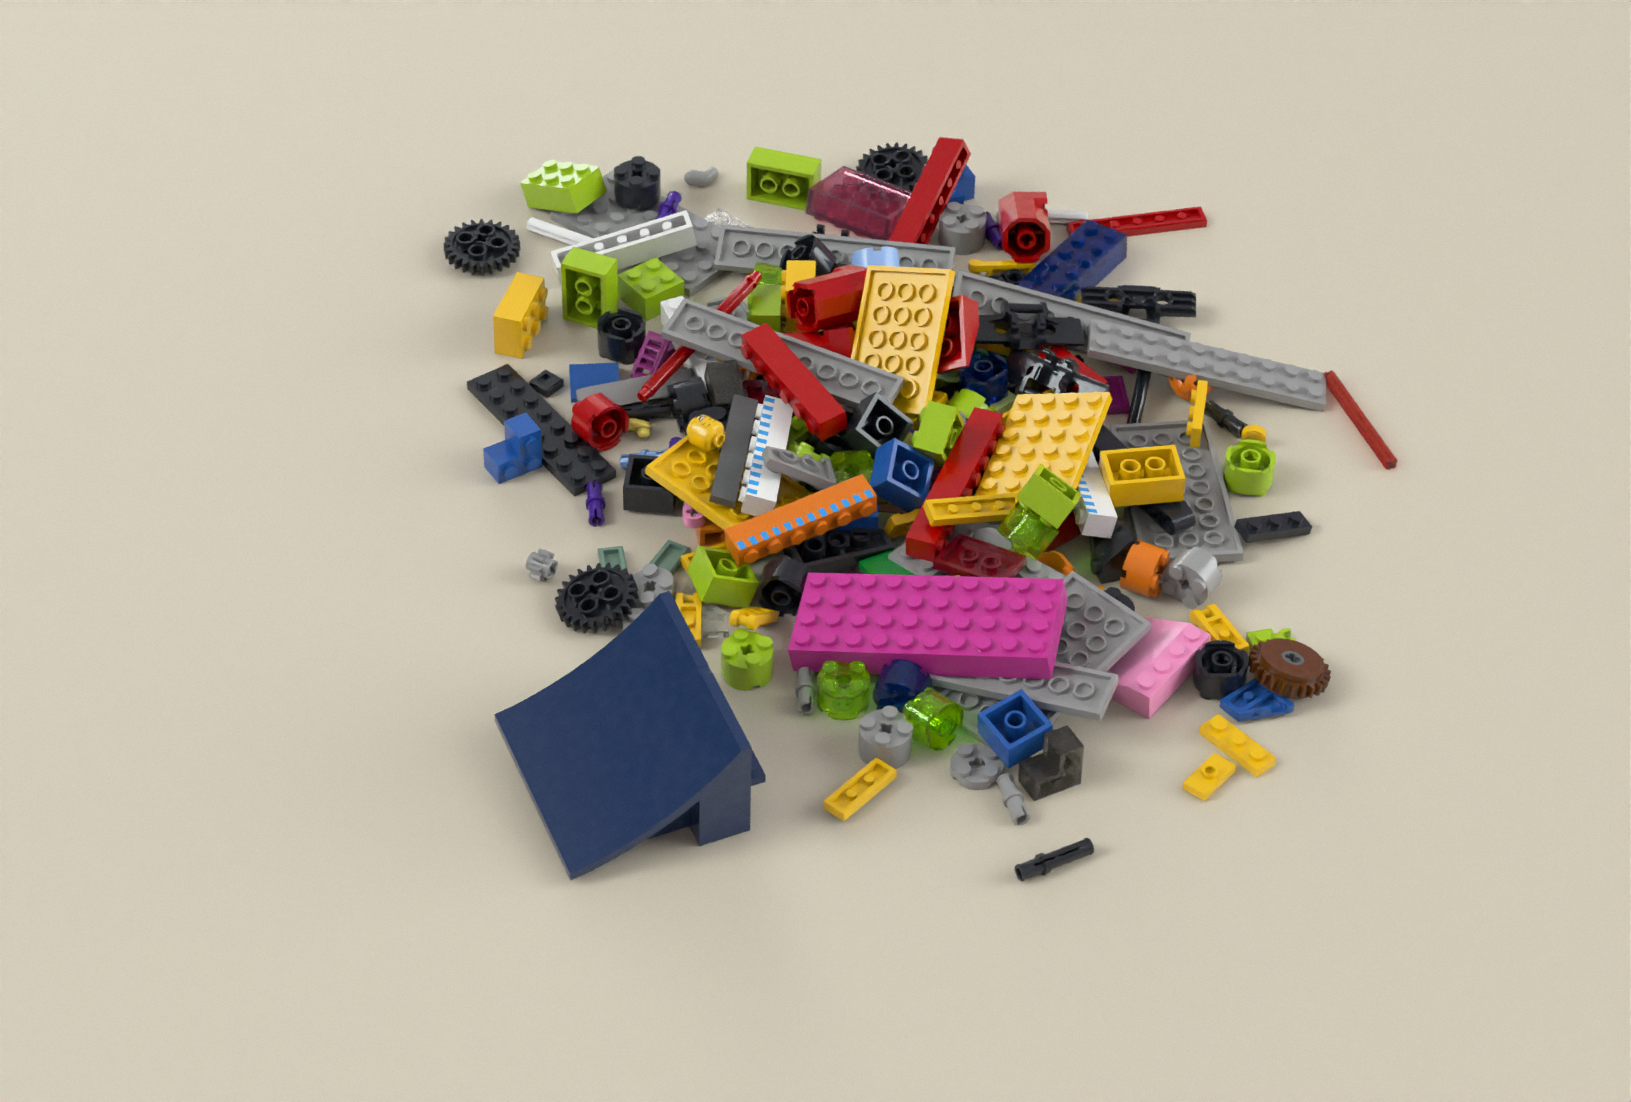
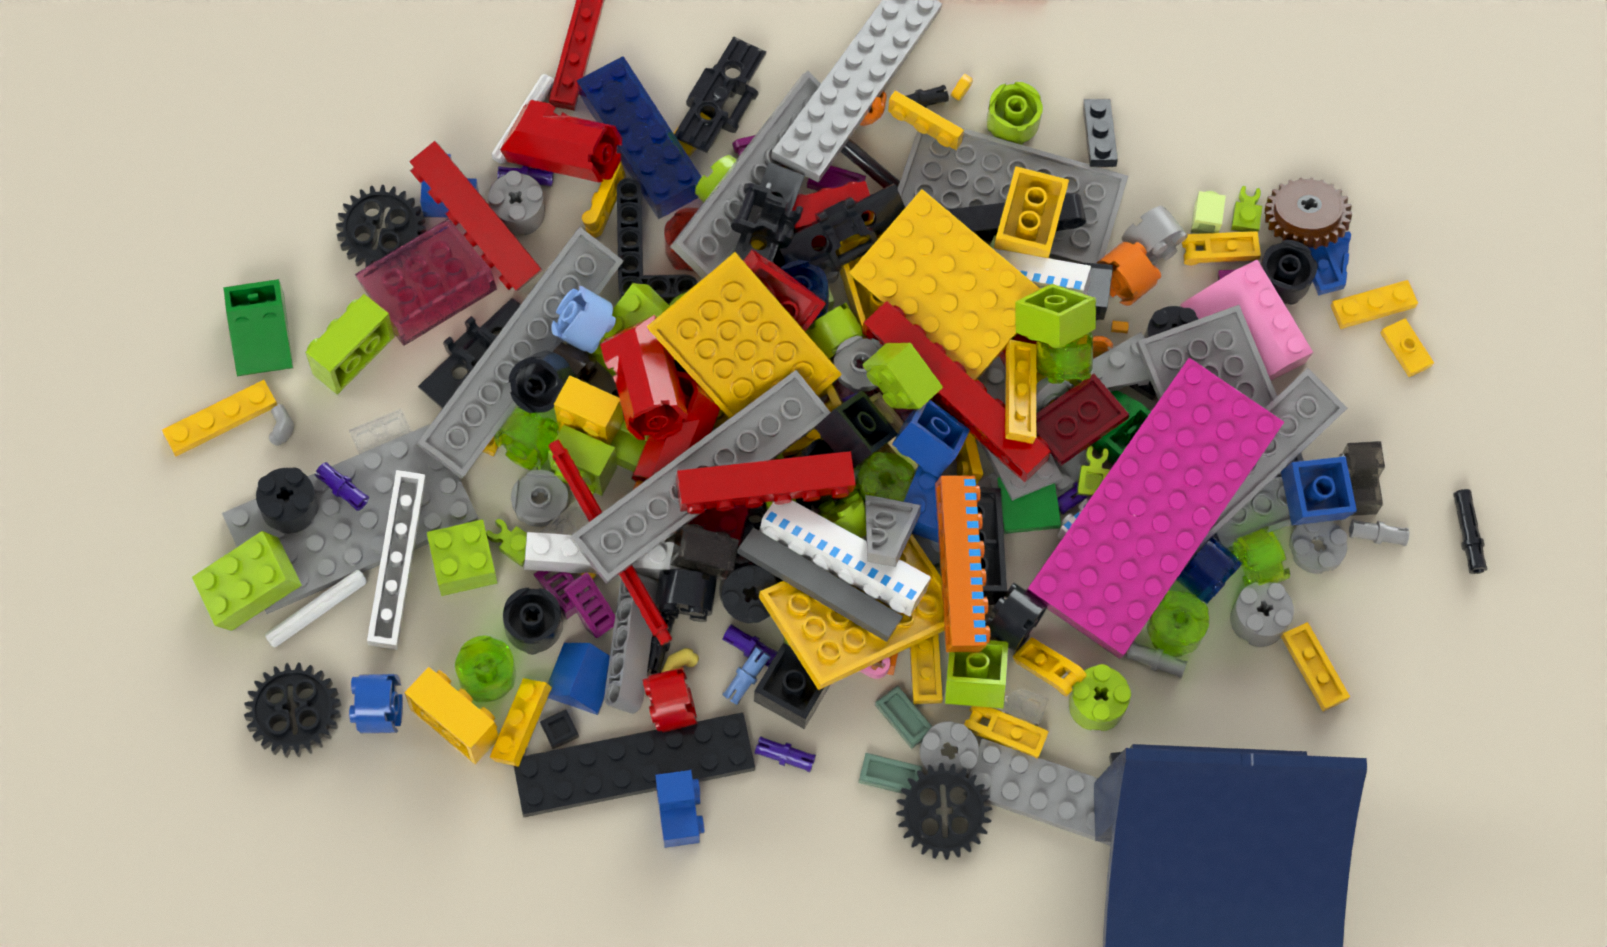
camera: 70 degrees left, 25 degrees up
(500, 271) = (376, 703): none -> blue brick
(538, 358) = (520, 722): none -> yellow plate
(541, 565) = (868, 848): light grey gear -> none
(568, 324) = (497, 657): none -> clear neon green brick
(588, 286) = (456, 620): lime brick -> none
(688, 147) = (219, 418): none -> yellow plate
(705, 433) = (798, 603): yellow head -> none
(773, 129) = (258, 327): none -> green slope
(1246, 611) = (1208, 212): none -> yellowish green brick

